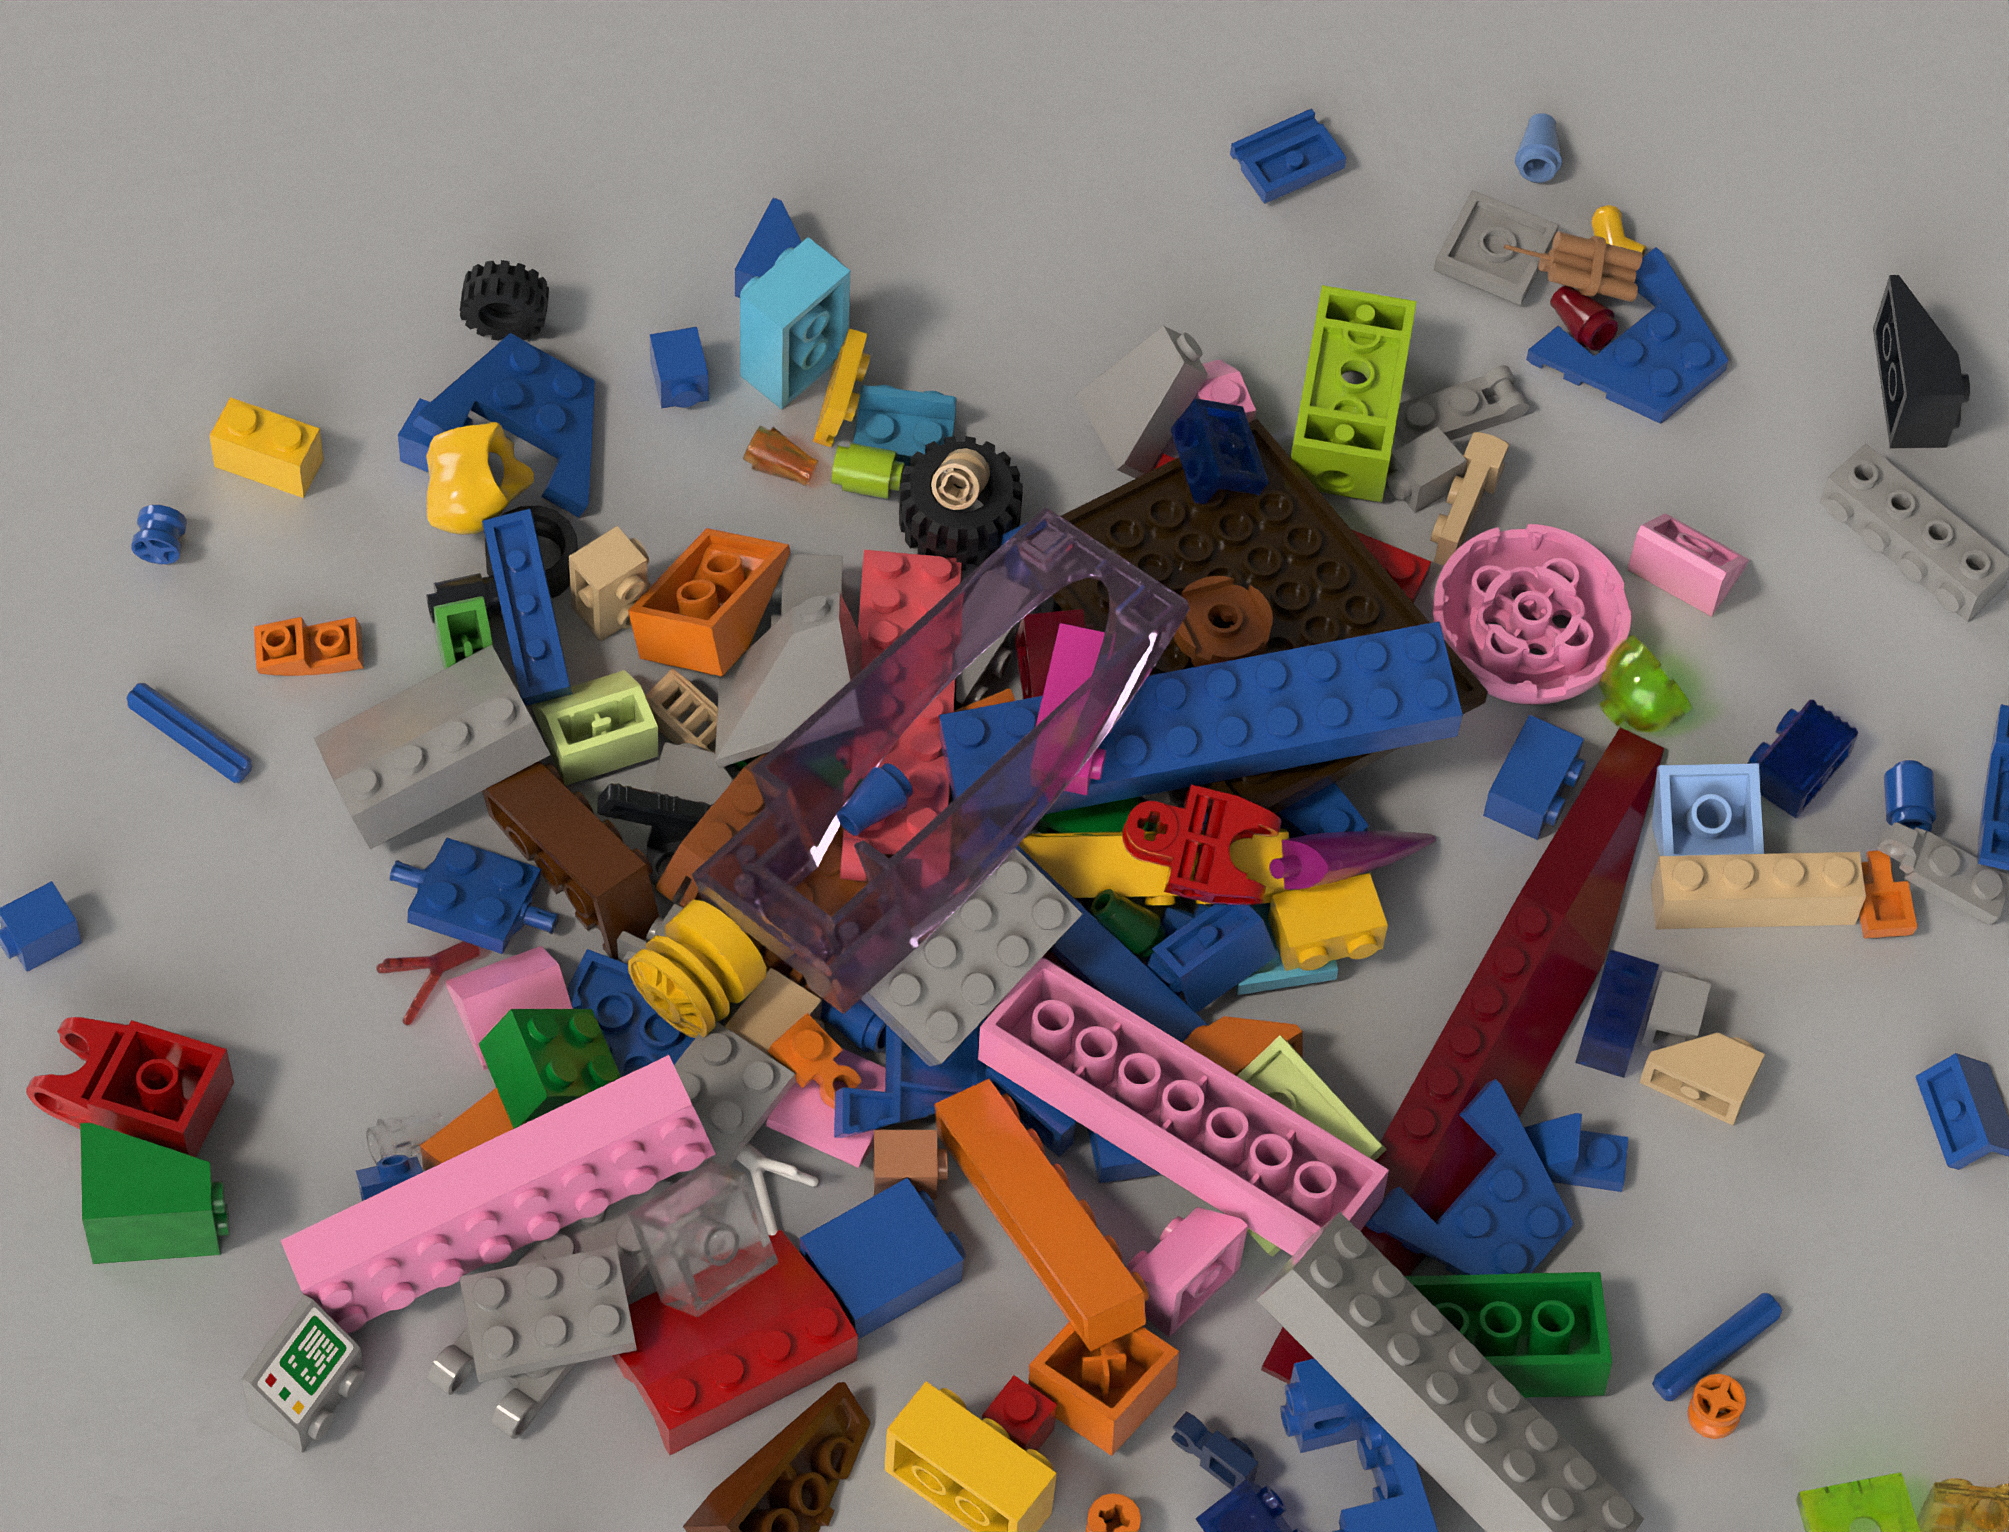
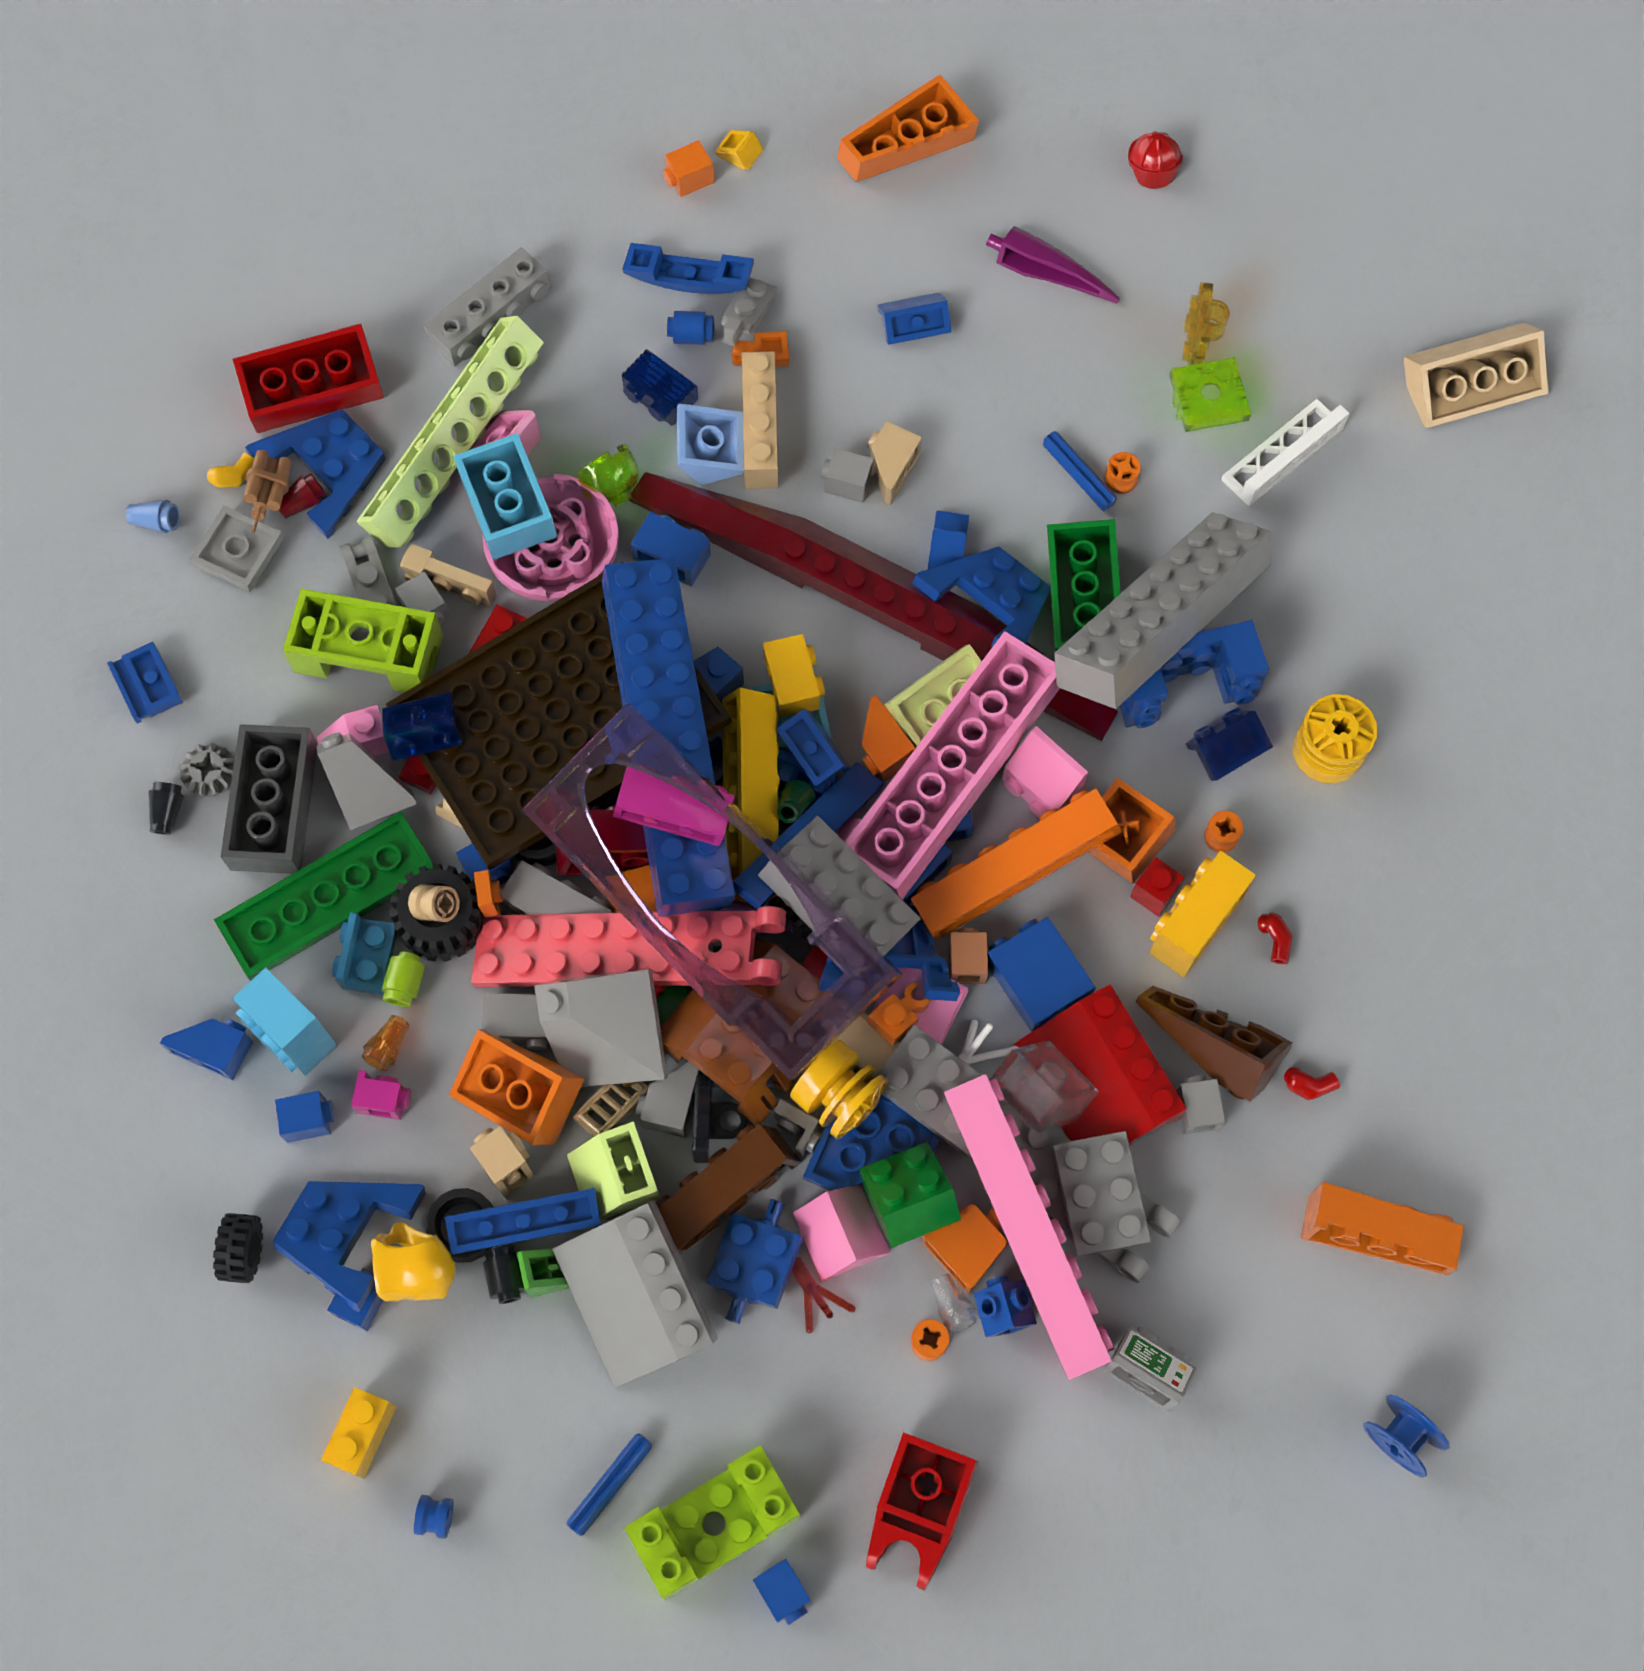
camera: 85 degrees left, 10 degrees up
(105, 802) = (674, 1540): none -> lime plate
(147, 1200) = (1020, 1490): green slope -> none
(299, 649) = (536, 1394): orange slope -> none
(354, 1119) = (926, 1349): none -> orange wheel
(683, 1468) = (1202, 1104): none -> light grey brick
(706, 450) = (380, 1096): none -> dark pink brick
(839, 399) = (333, 996): yellow plate -> none
(877, 797) = (725, 953): blue cone -> none
(977, 544) = (488, 893): none -> orange plate
(997, 384) = (322, 895): none -> green plate
(1107, 189) = (164, 806): none -> black cone
(1114, 296) = (269, 799): none -> dark grey brick
(1146, 242) = (215, 781): none -> light grey gear
(1177, 841) = (755, 742): red piece -> none
(1220, 597) = (553, 716): dark orange plate -> none
(1222, 1457) = (1174, 759): dark blue plate -> none
(1340, 855) = (749, 658): magenta piece -> none
(1574, 534) = (505, 496): none -> medium azure brick
(1617, 1013) = (850, 508): clear blue brick -> none
(1768, 311) = (308, 378): none -> red brick
(1858, 548) = (436, 436): none -> yellowish green brick
(1916, 372) = (364, 291): black slope -> none

